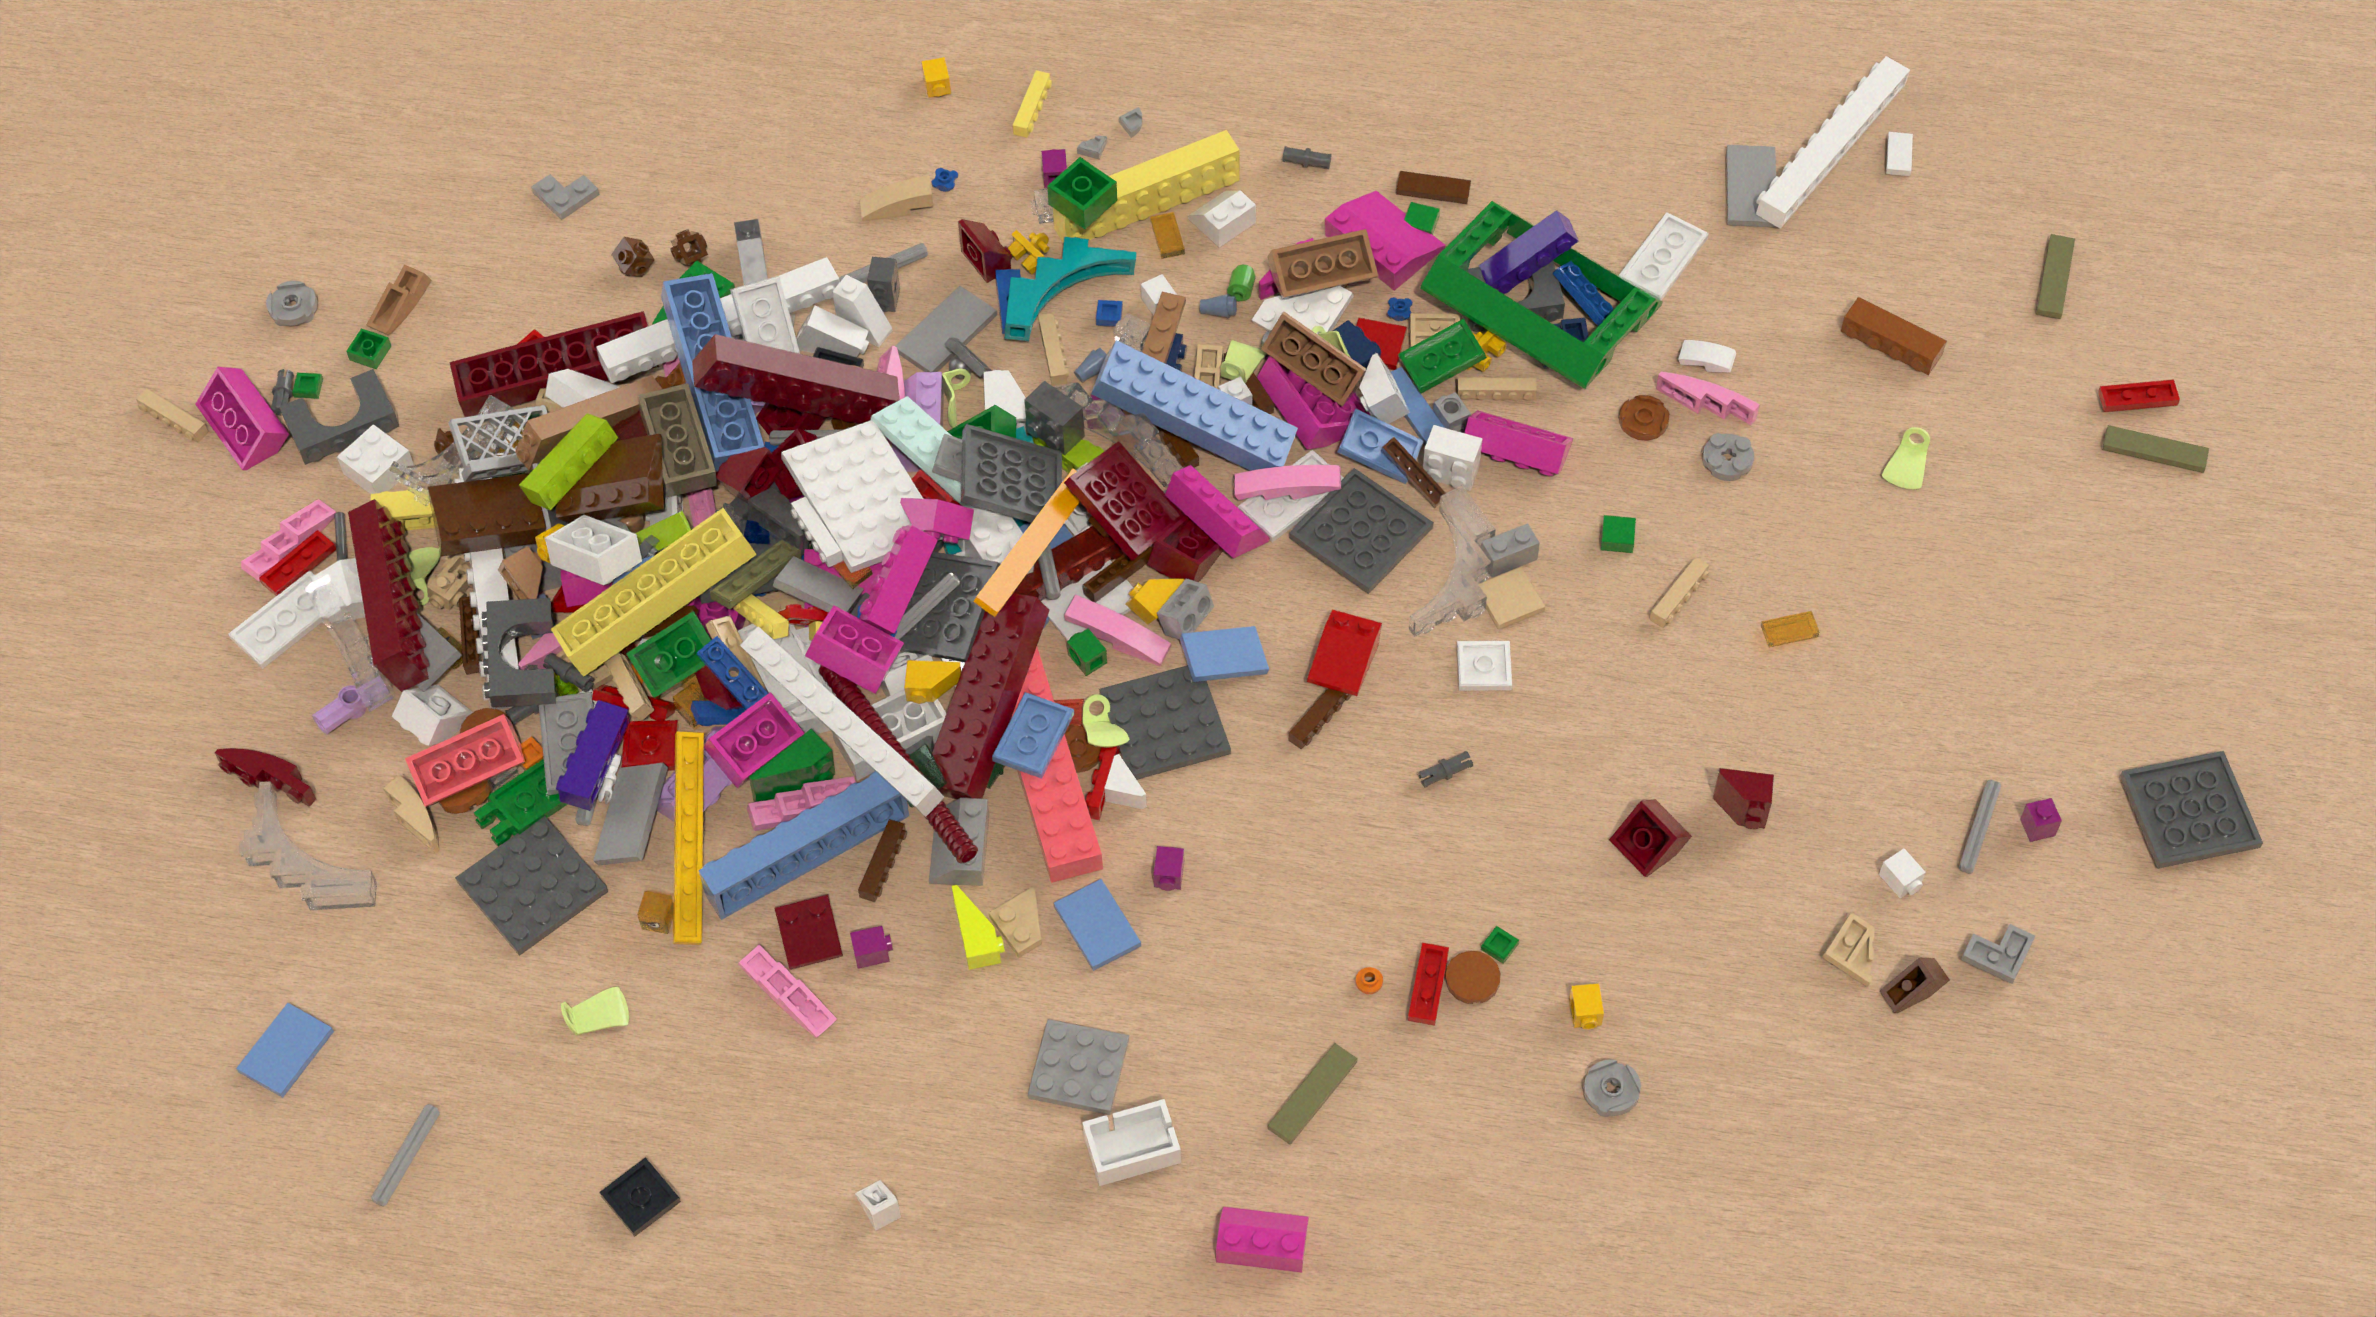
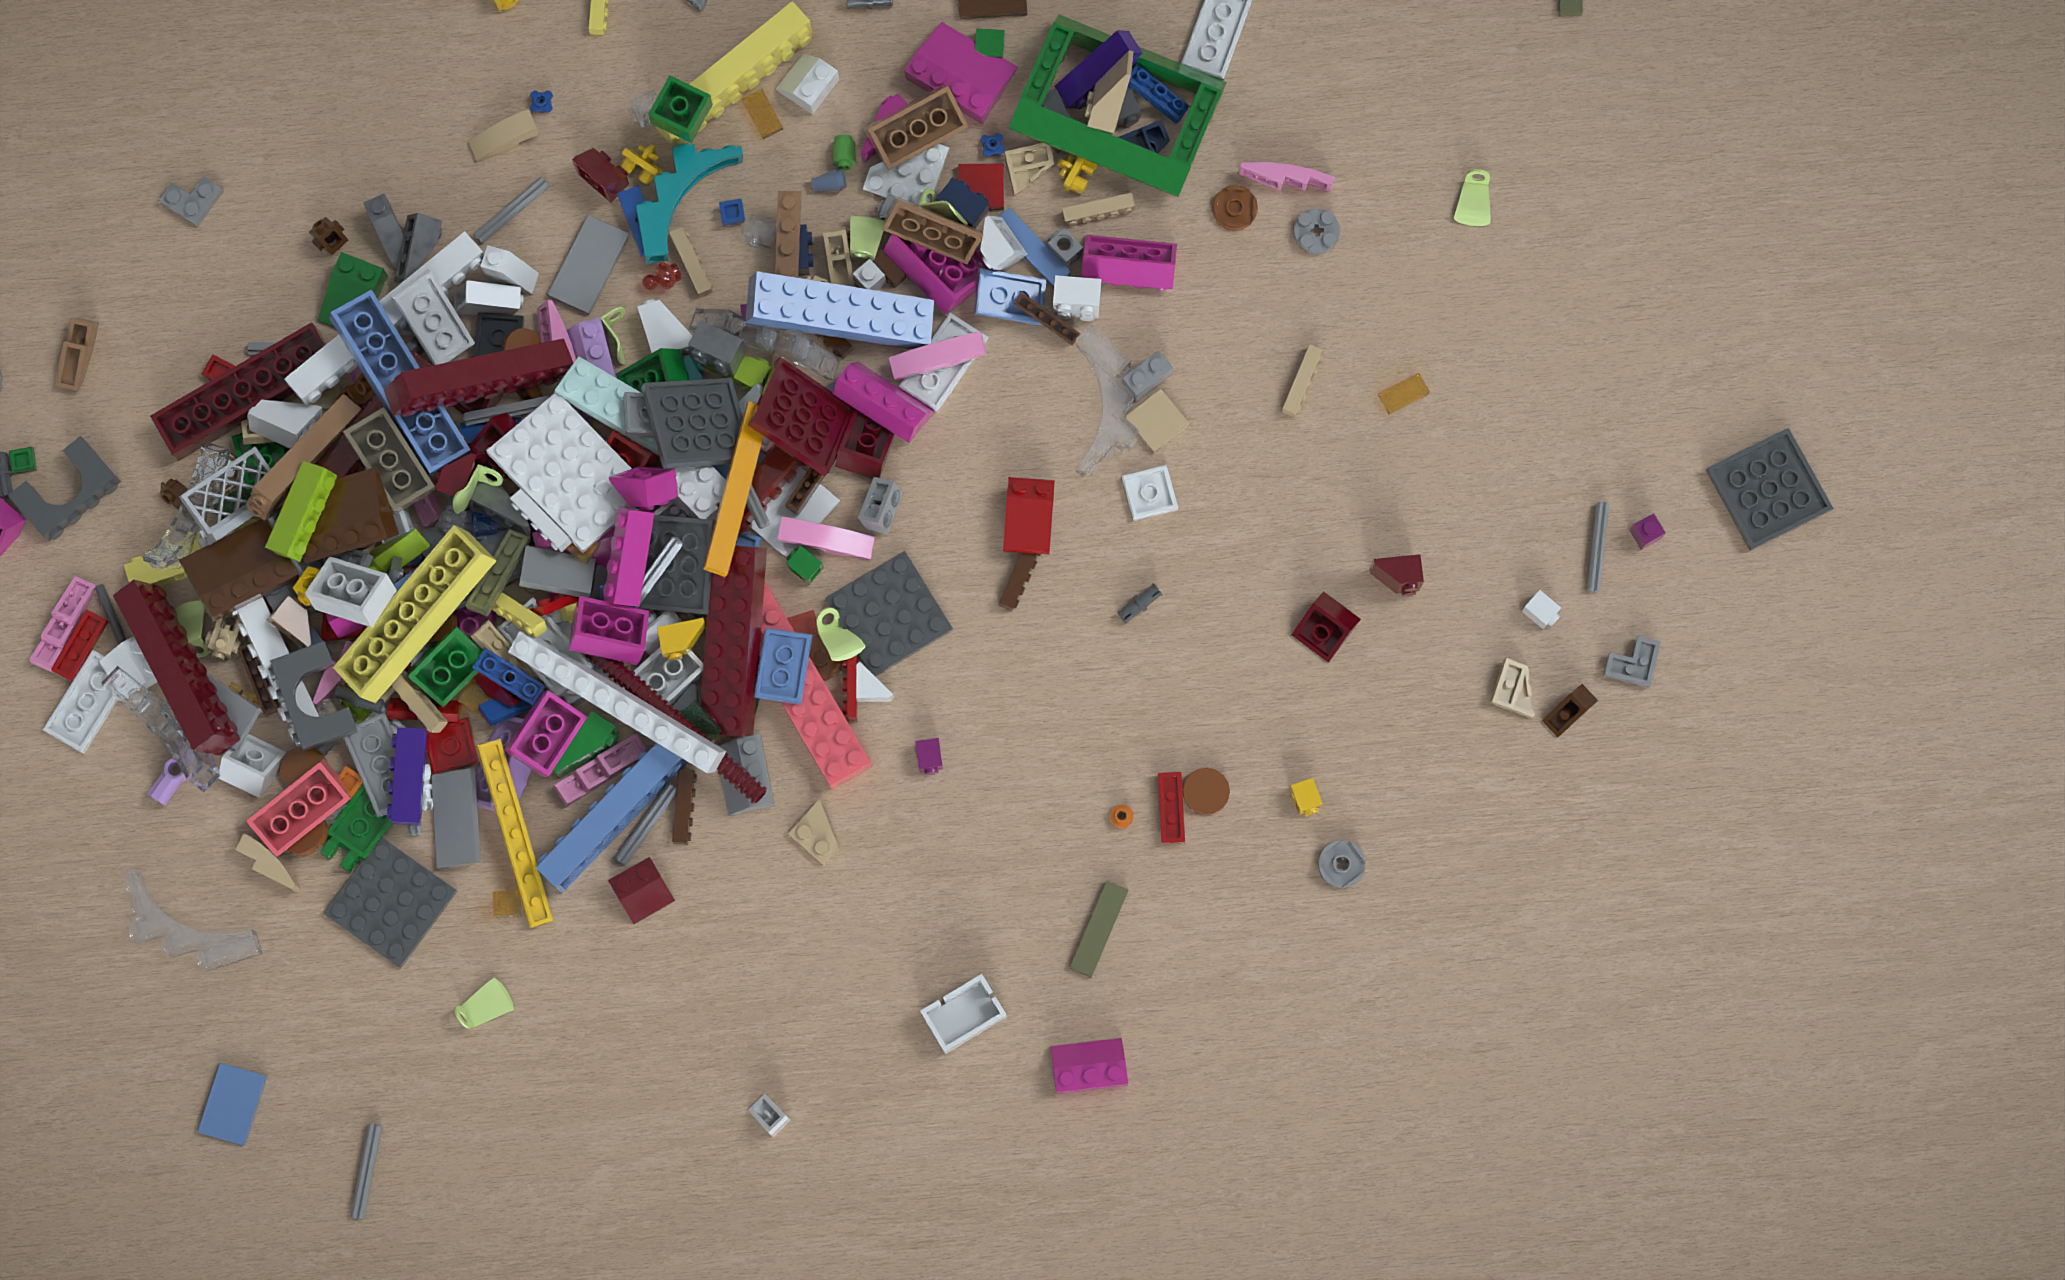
camera: 15 degrees left, 20 degrees up
(262, 767) = (118, 854): dark red slope -> none
(368, 348) = (66, 409): green piece -> none
(370, 458) = (114, 528): white brick -> none
(633, 257) = (279, 257): reddish brown brick -> none
(640, 1197) = (572, 1159): black plate -> none
(746, 488) = (463, 497): none -> yellowish green piece
(781, 260) = (418, 241): none -> flat silver slope
(787, 991) = (639, 947): bright pink slope -> none
(836, 869) = (646, 824): none -> light grey axle
(871, 946) = (698, 890): magenta brick -> none
(884, 282) = (520, 235): dark grey brick -> none
(965, 359) = (616, 295): flat silver tile -> none
(977, 933) = (785, 857): neon yellow slope -> none
(1021, 355) = (665, 276): none -> clear red animal
(1053, 164) = (640, 67): magenta brick -> none
(1078, 1067) = (900, 953): light grey plate -> none
(1091, 365) = (732, 270): sand blue cone -> none
(1092, 147) = (669, 32): light grey tile -> none
(1097, 924) = (881, 820): medium blue tile -> none
(1151, 596) = (848, 499): yellow slope -> none
(1152, 290) = (771, 182): white brick -> none
(1224, 653) = (924, 538): medium blue tile -> none
(1361, 530) = (1013, 385): dark grey plate -> none
(1442, 356) = (1043, 191): green tile -> none
(1500, 944) = (1221, 755): green tile -> none
(1528, 280) = (1108, 95): none -> tan slope
(1618, 534) = (1237, 334): green piece -> none
(1711, 355) = (1277, 130): white slope -> none
(1893, 336) = (1438, 72): dark orange brick -> none
(2139, 395) = (1663, 83): red plate -> none
(2156, 449) = (1685, 134): olive tile -> none

